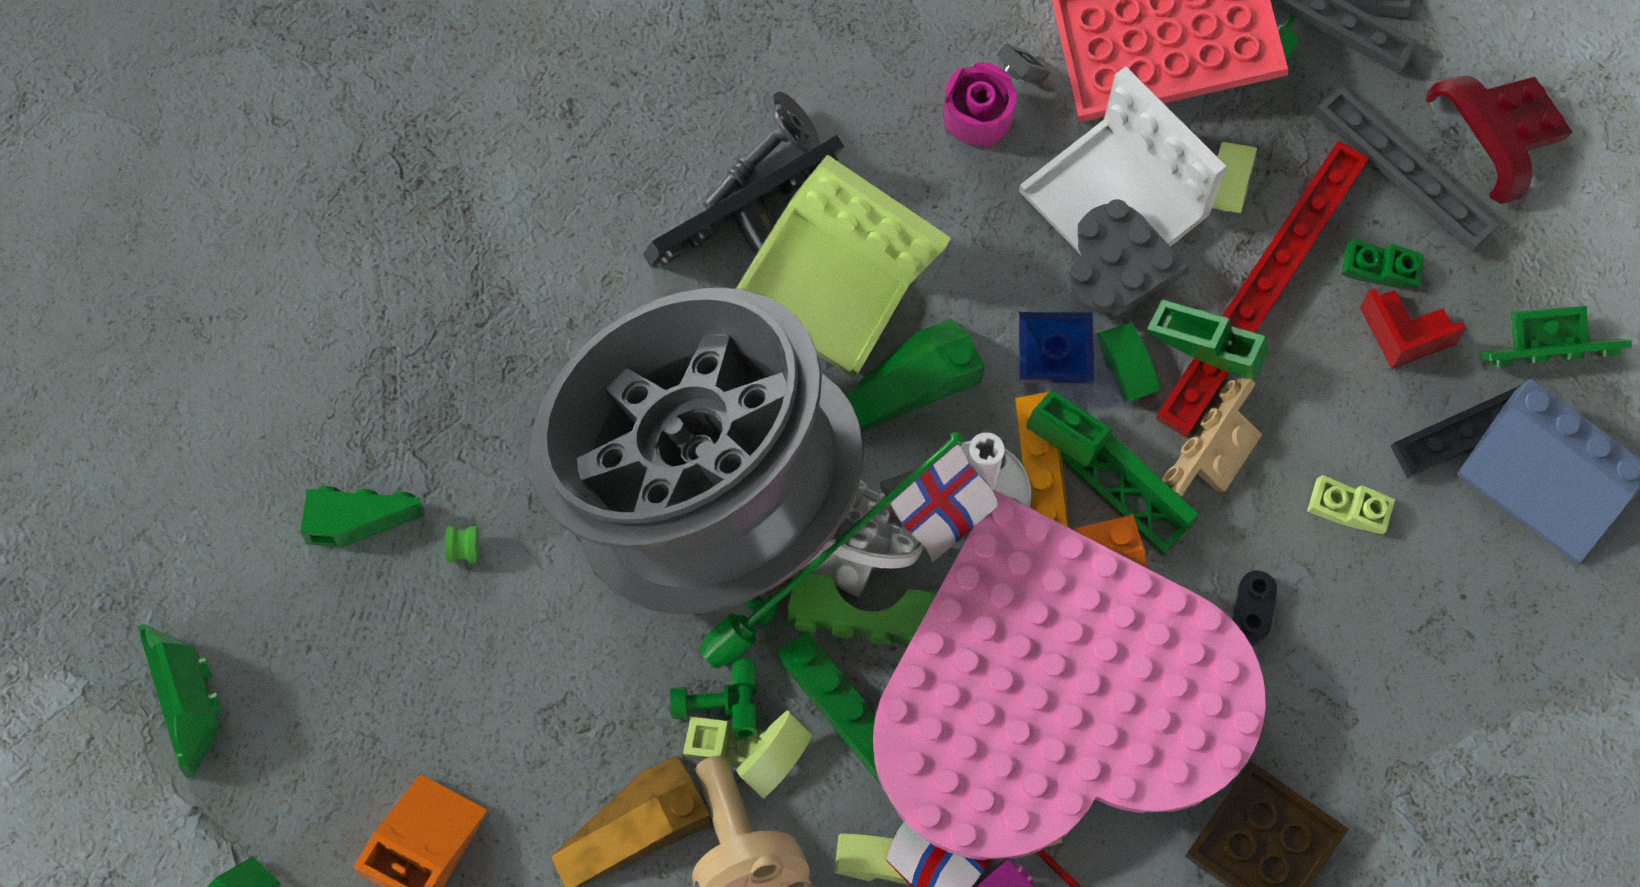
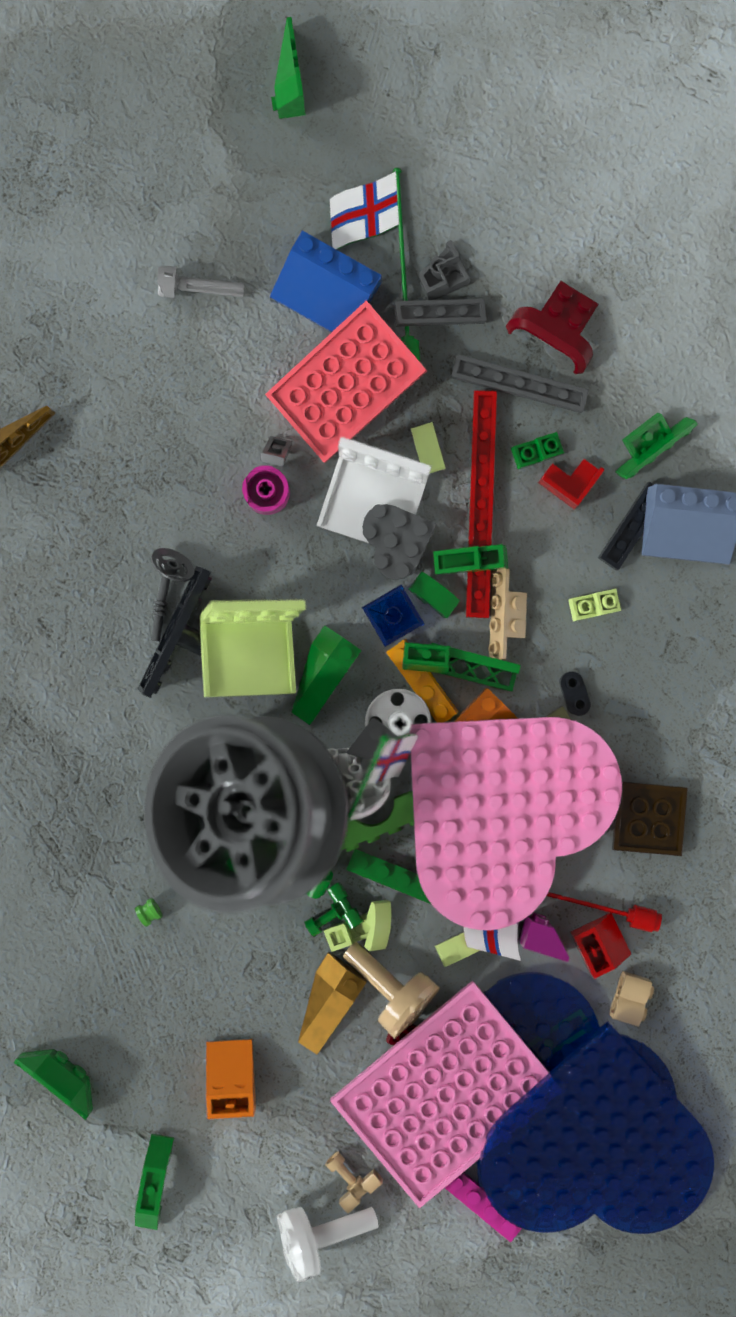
camera: 30 degrees left, 20 degrees up
(349, 517) = (76, 937): green slope -> none

